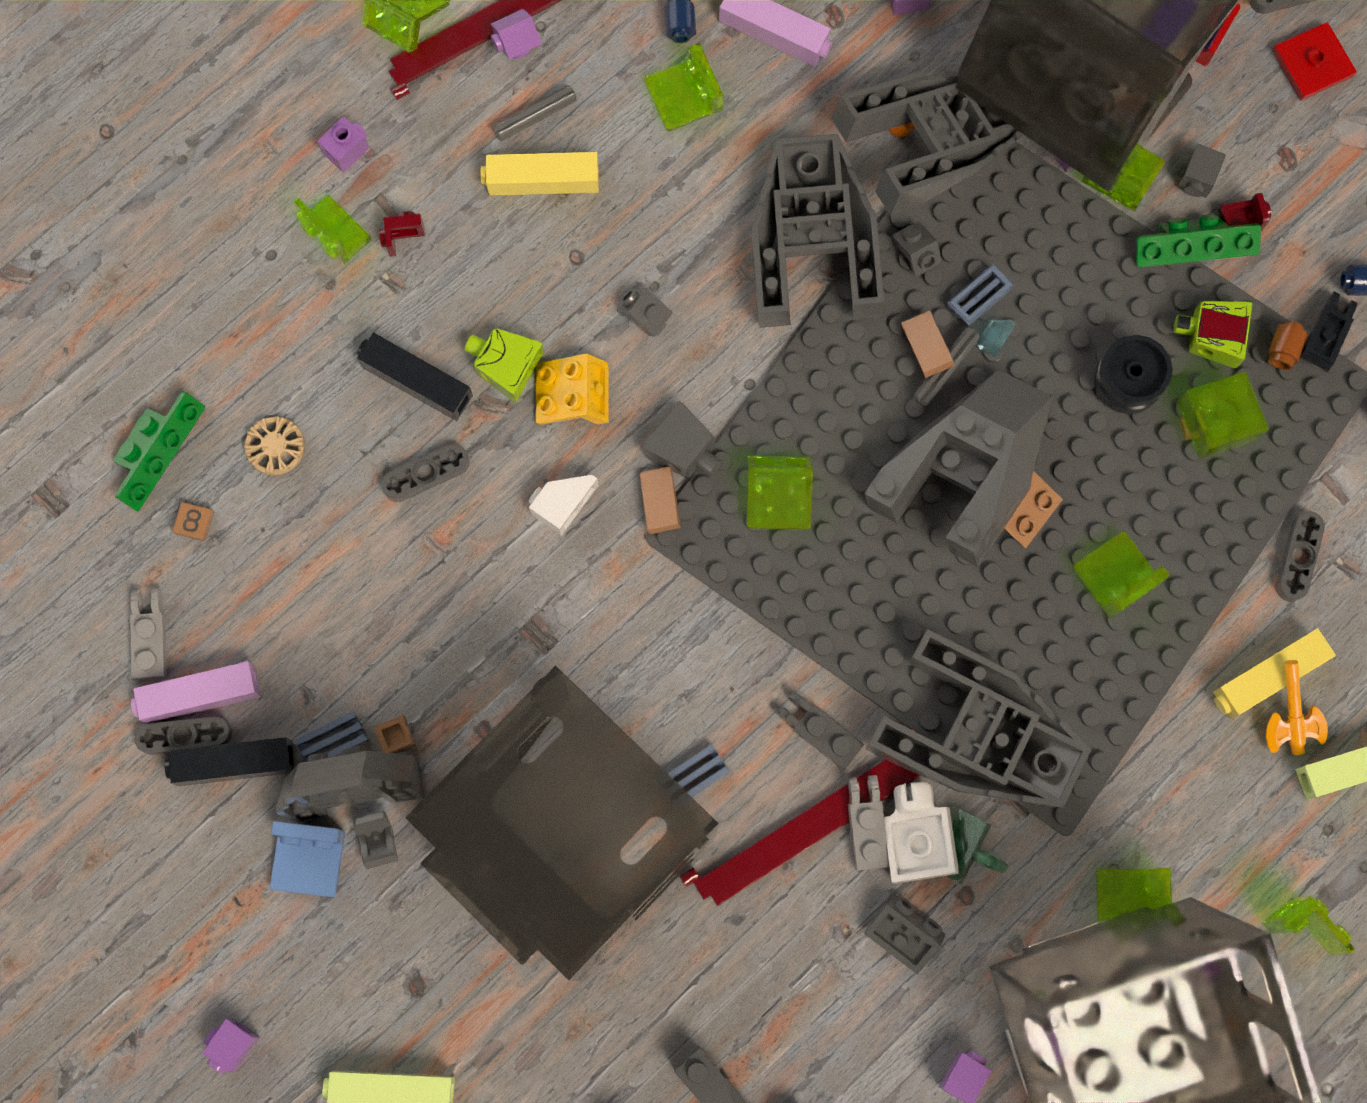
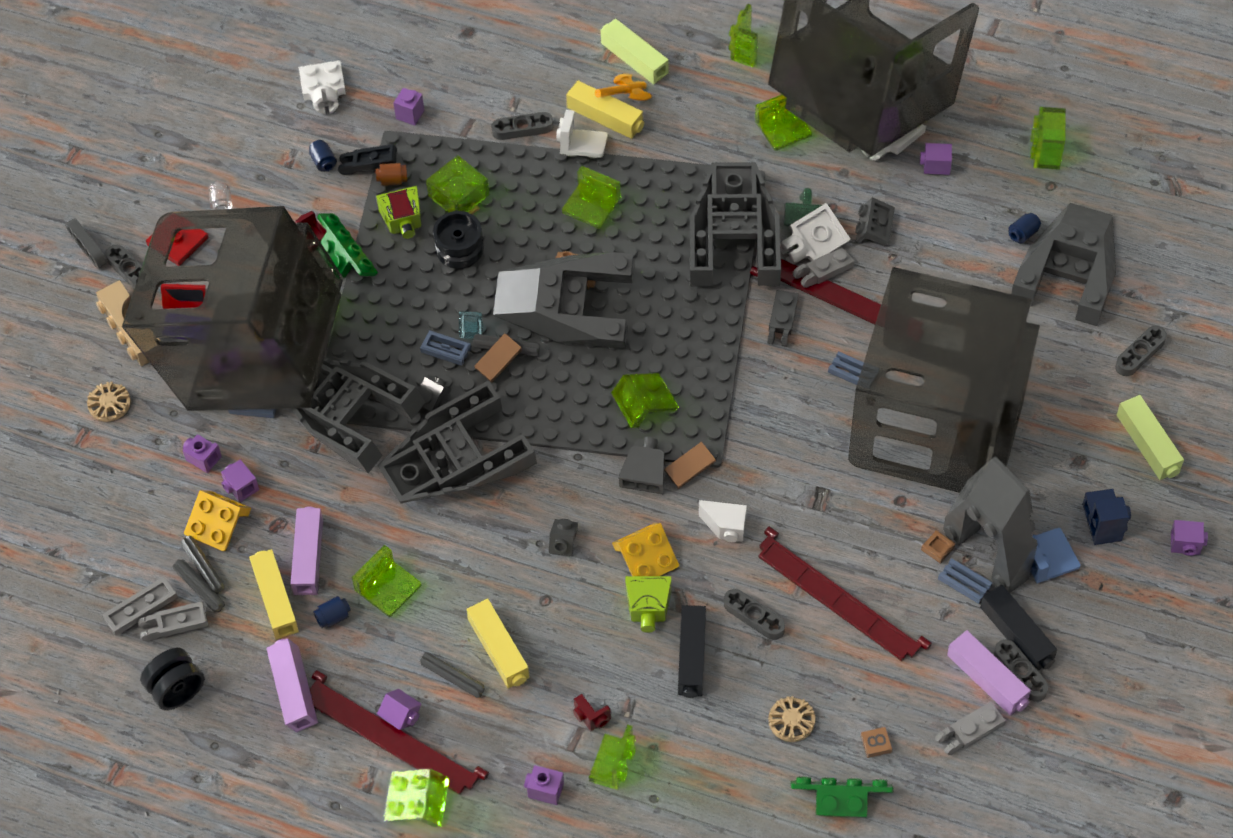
camera: 115 degrees left, 20 degrees down
(311, 957) = (1106, 516): none -> dark blue brick
(393, 579) = (838, 599): none -> dark red piece
(1233, 613) = (579, 142): none -> white bracket

